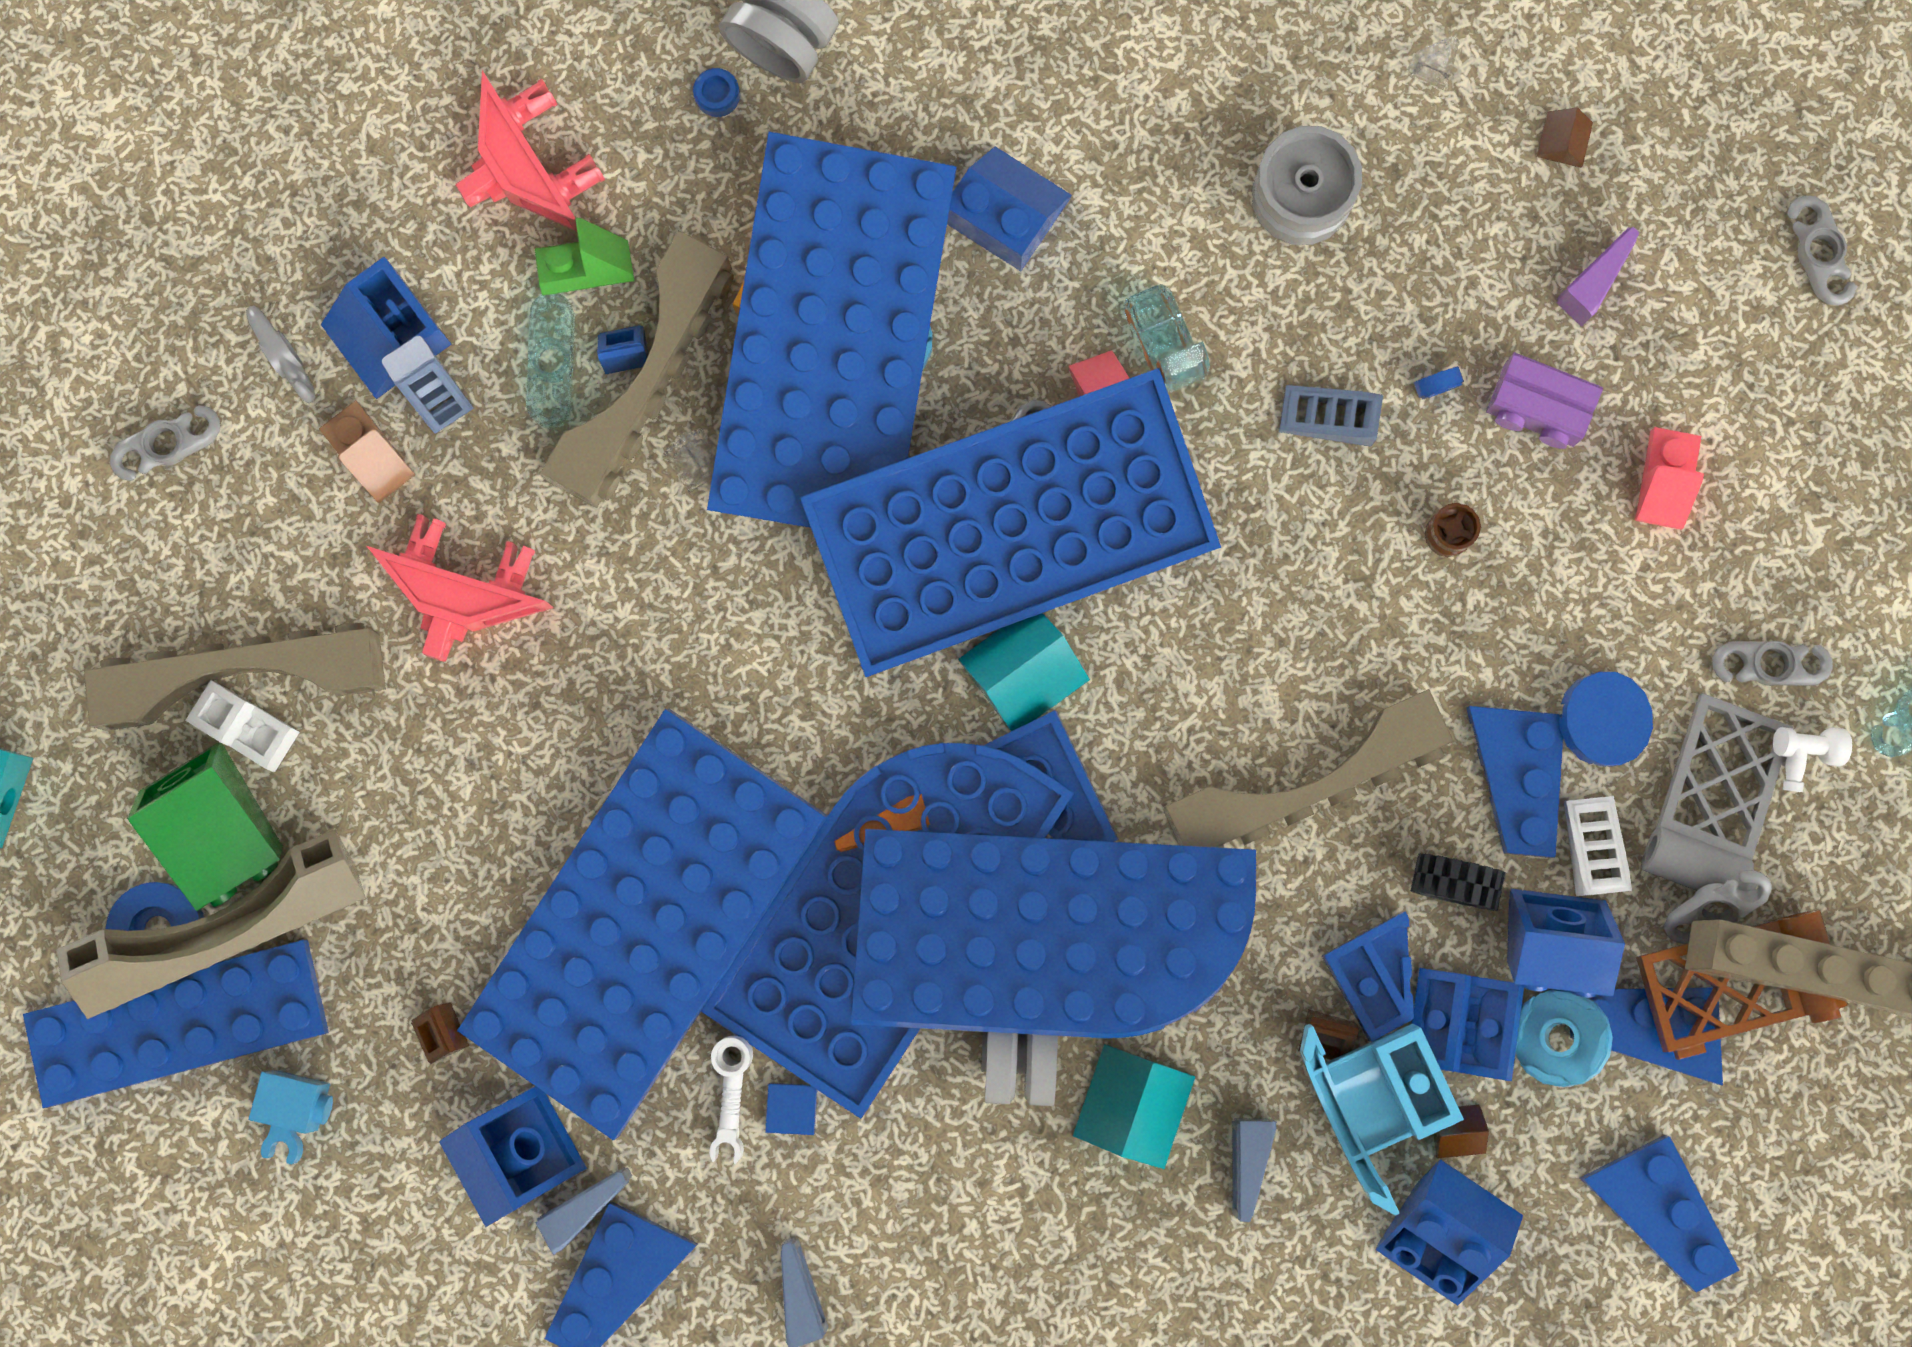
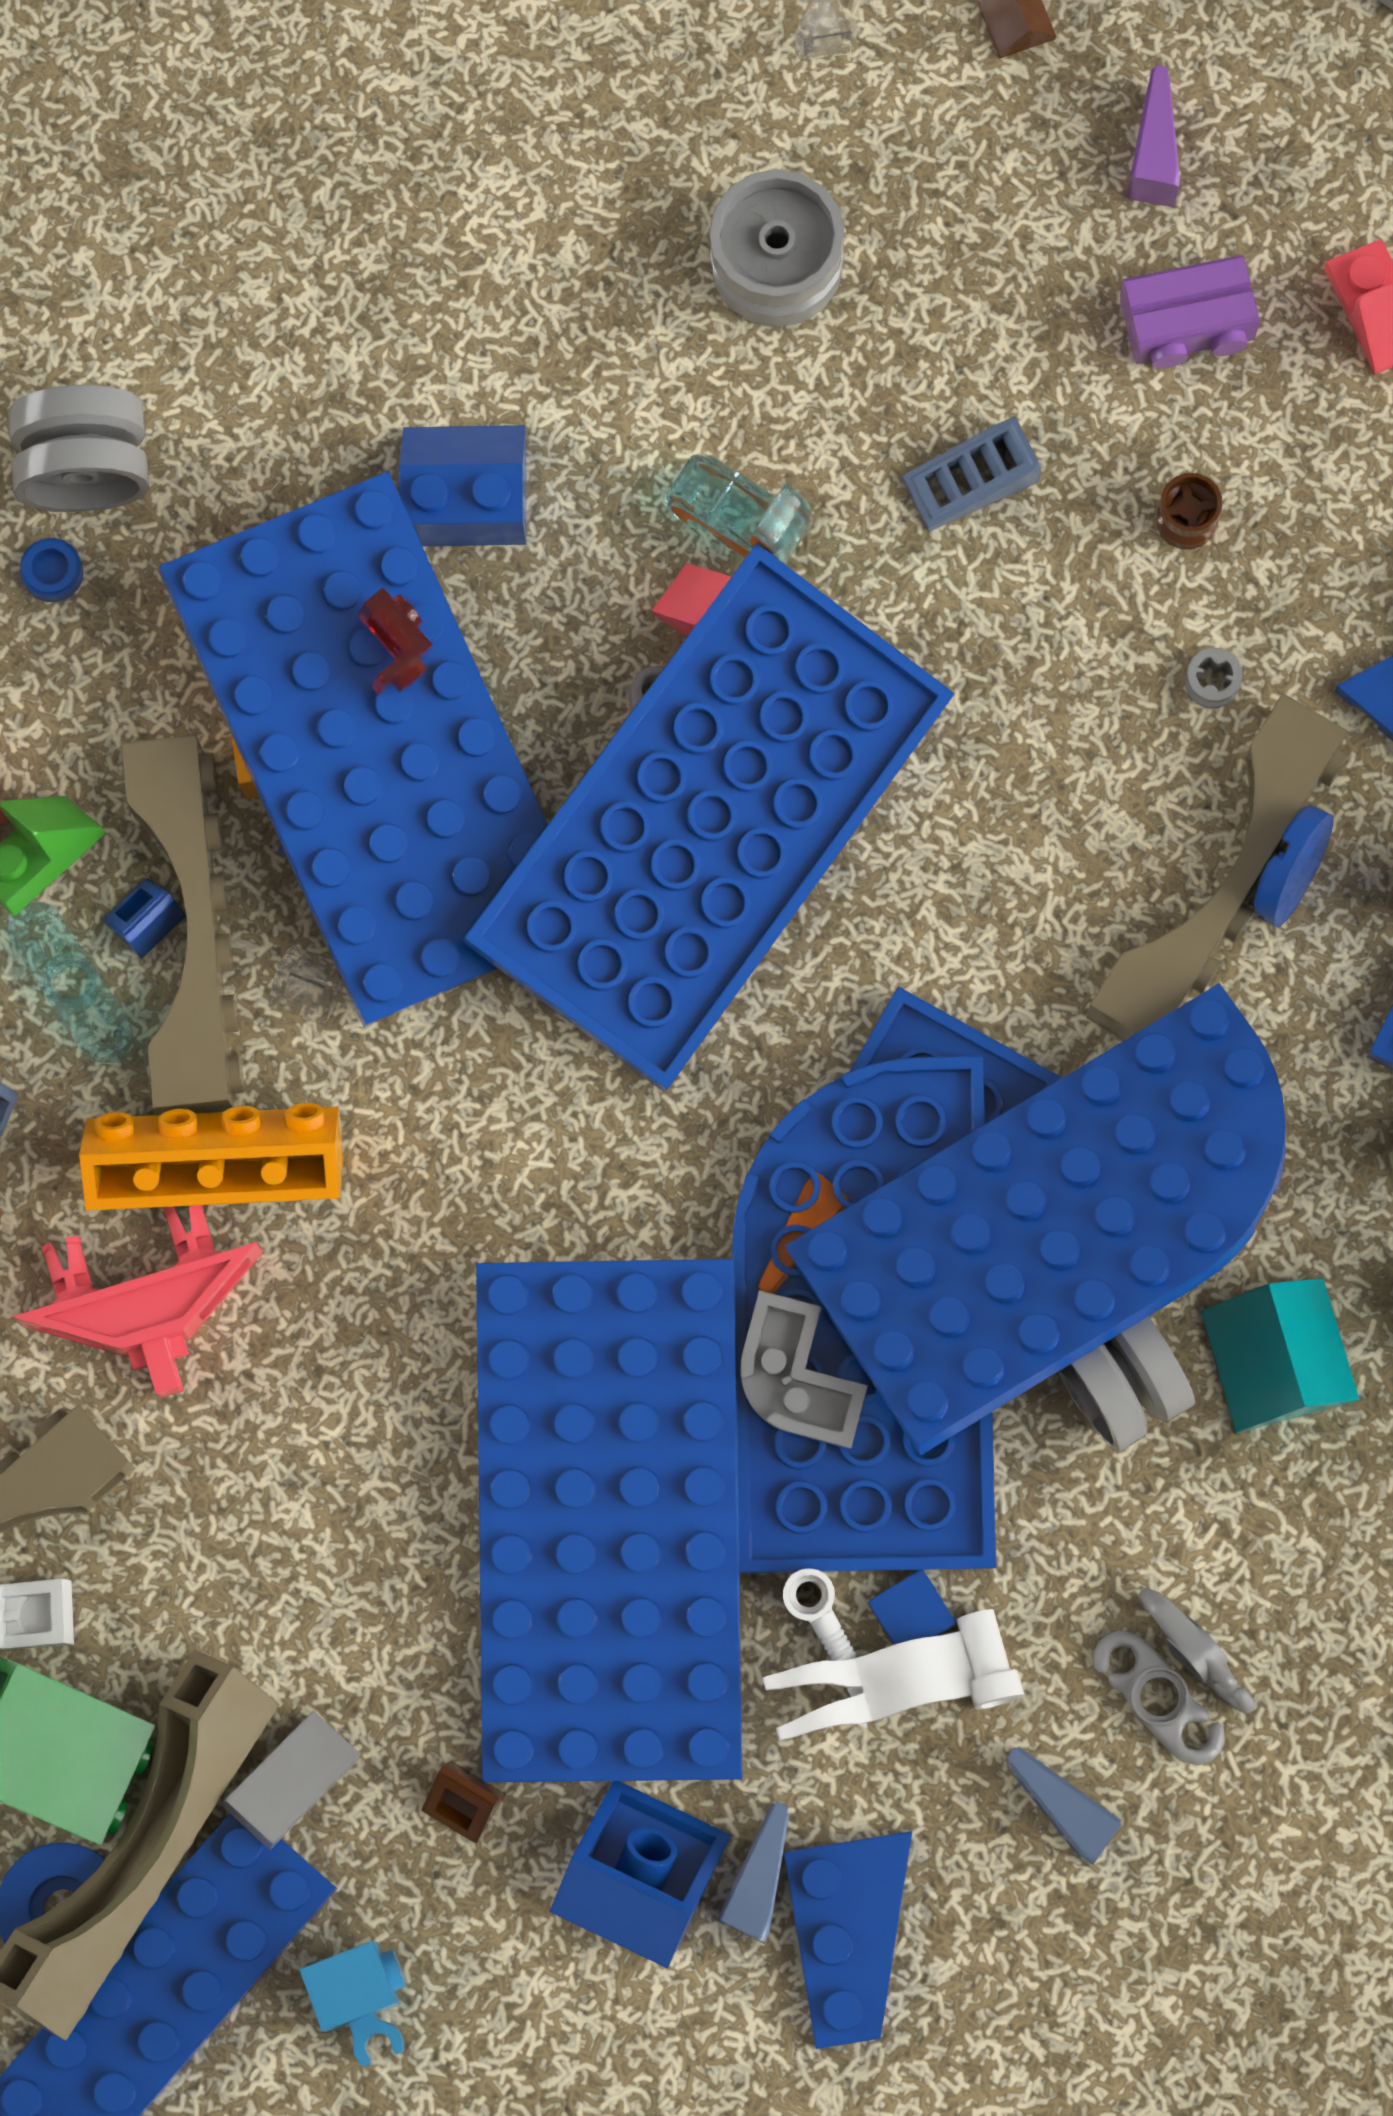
camera: 35 degrees left, 5 degrees down
(341, 949) = (291, 1780): none -> light grey tile
(556, 529) = (211, 1157): none -> light orange brick
(759, 1150) = (909, 1676): none -> white flag
(803, 917) = (779, 1384): none -> light grey plate
(890, 269) = (396, 627): none -> clear red bracket
(900, 1291) = (1166, 1728): none -> light grey piece
(949, 1257) = (1196, 1650): none -> light grey piece
(1024, 670) = (833, 967): teal slope -> none
(1347, 811) = (1291, 872): none -> blue tile
(1404, 637) = (1209, 695): none -> light grey bush
(1439, 383) = (1065, 365): blue tile -> none

